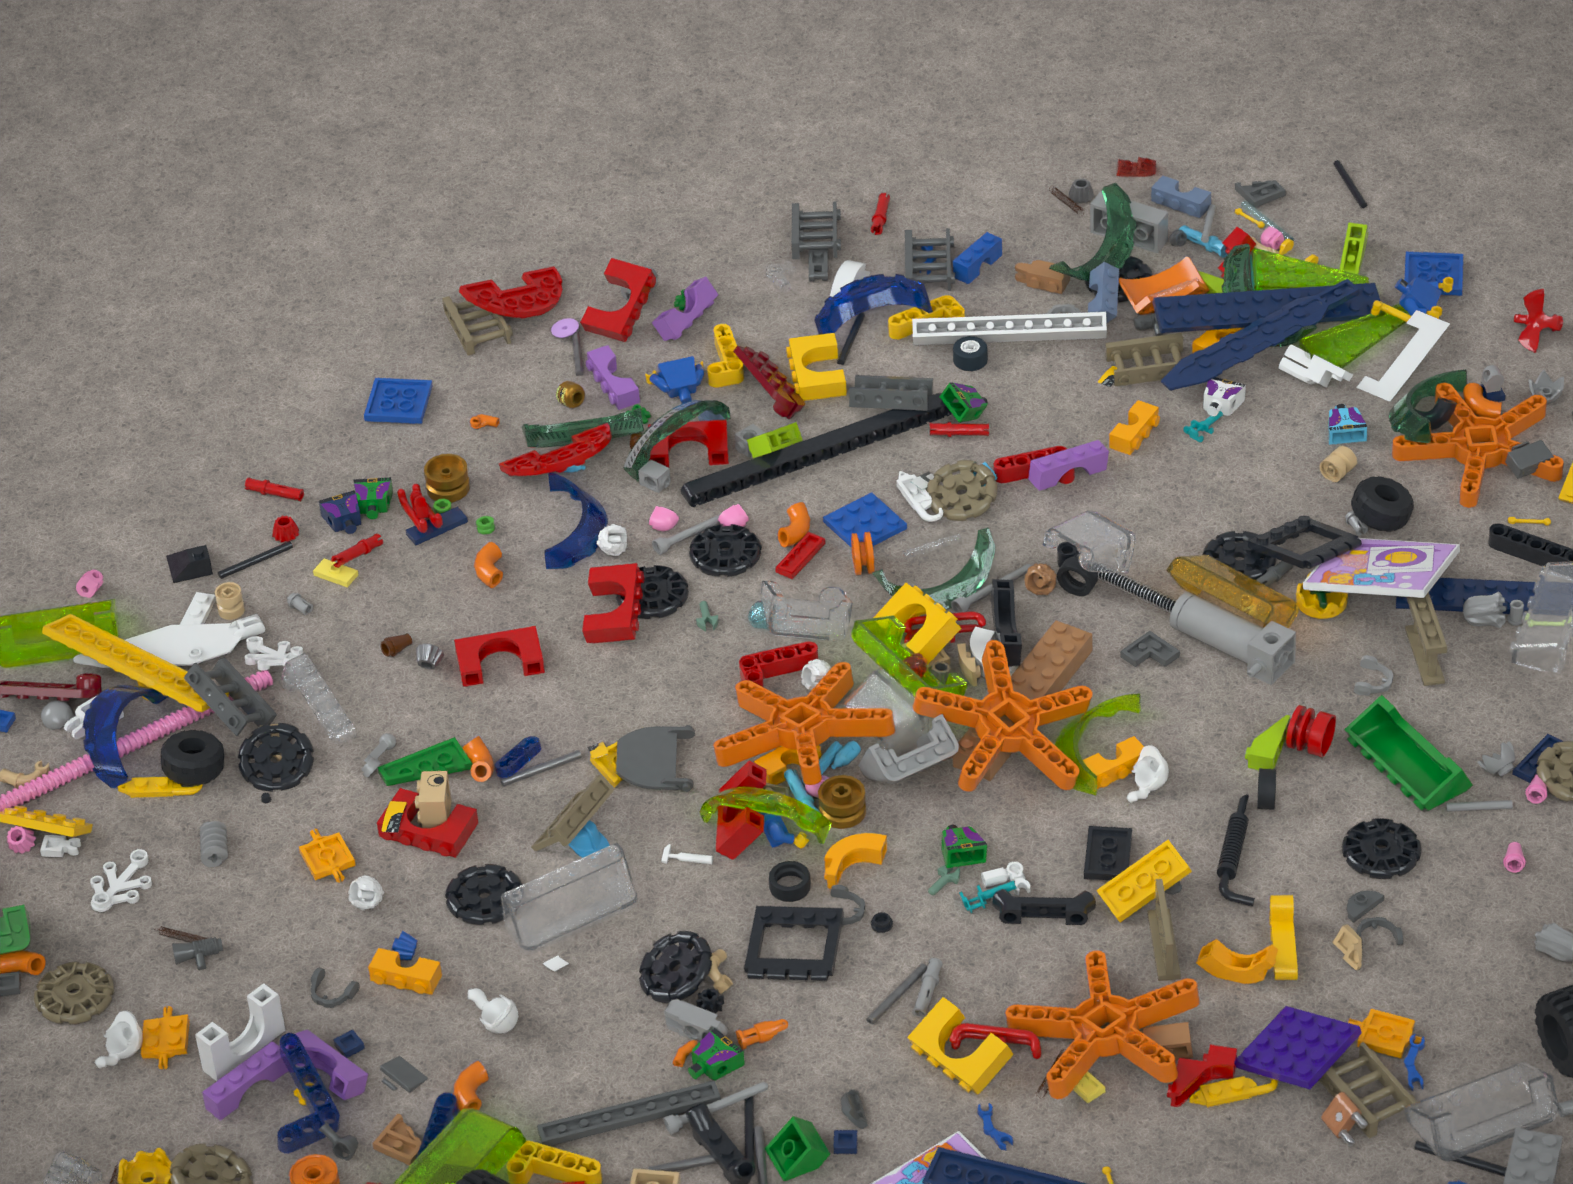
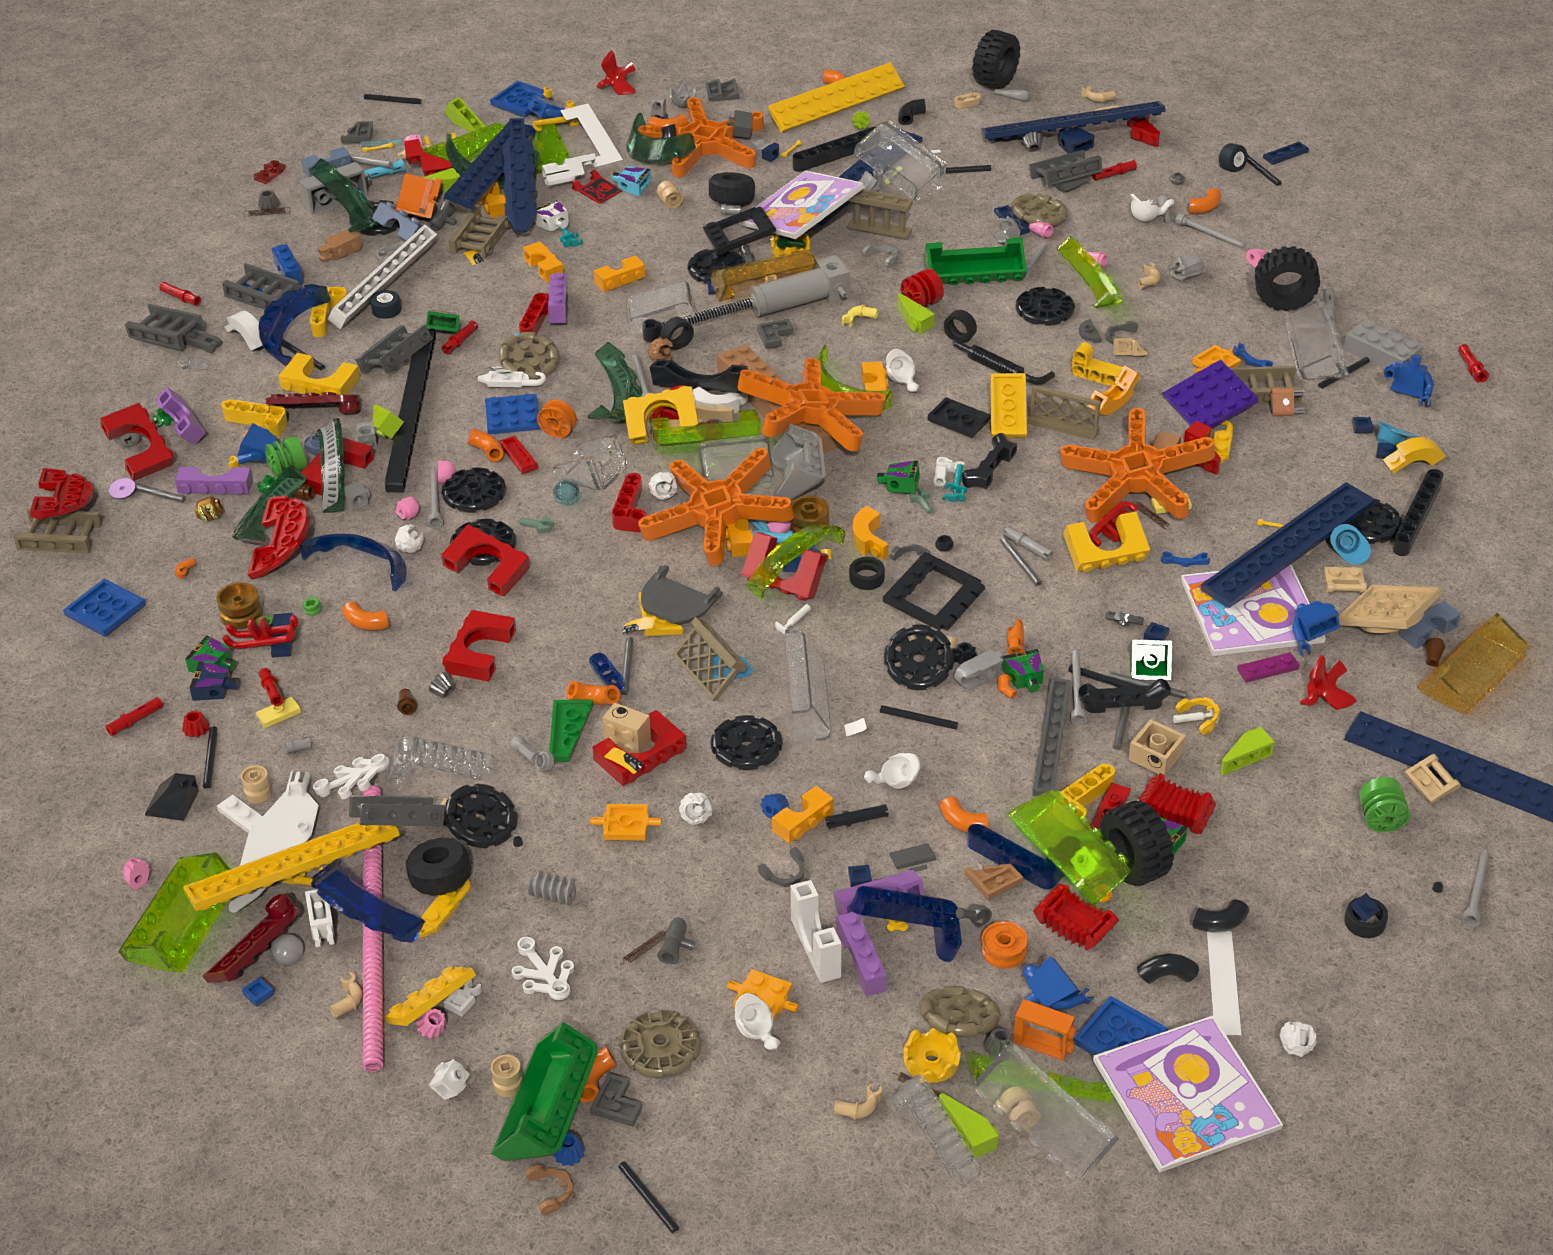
camera: 65 degrees left, 0 degrees up
(59, 1144) = (858, 1110): none -> tan piece
(422, 1006) = (848, 818): none -> black pin
(600, 1006) = (919, 717): none -> black bar
(663, 397) = (280, 458): none -> bright green wheel
(1172, 498) = (608, 278): none -> light orange arch
(1243, 700) = (859, 311): none -> light yellow piece
(1312, 409) = (598, 189): none -> red flag
(1472, 876) = (1090, 270): none -> clear neon green windscreen
(1499, 498) = (766, 150): none -> leg
(1517, 923) = (1152, 279): none -> tan piece

